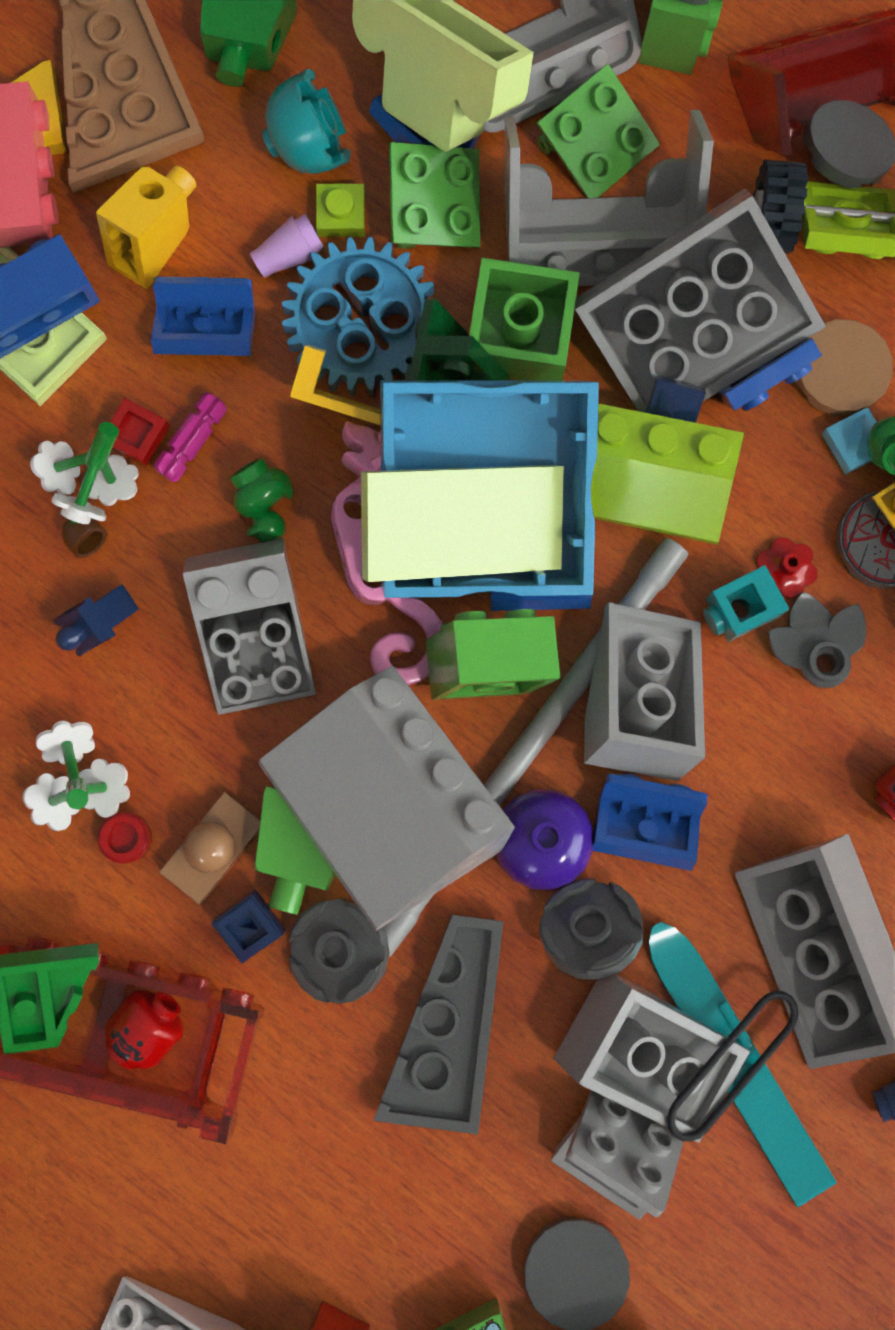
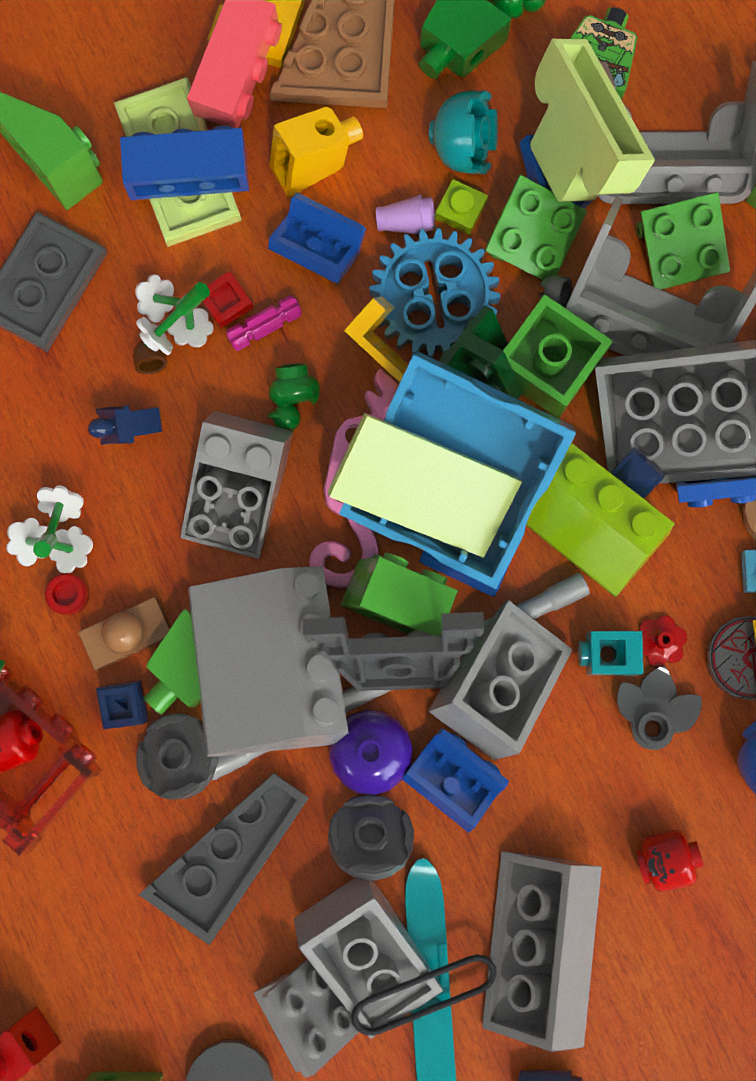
camera: 30 degrees right, 0 degrees up
(489, 246) = (557, 288): none -> dark grey hinge
(530, 724) = (396, 662): none -> dark grey wing

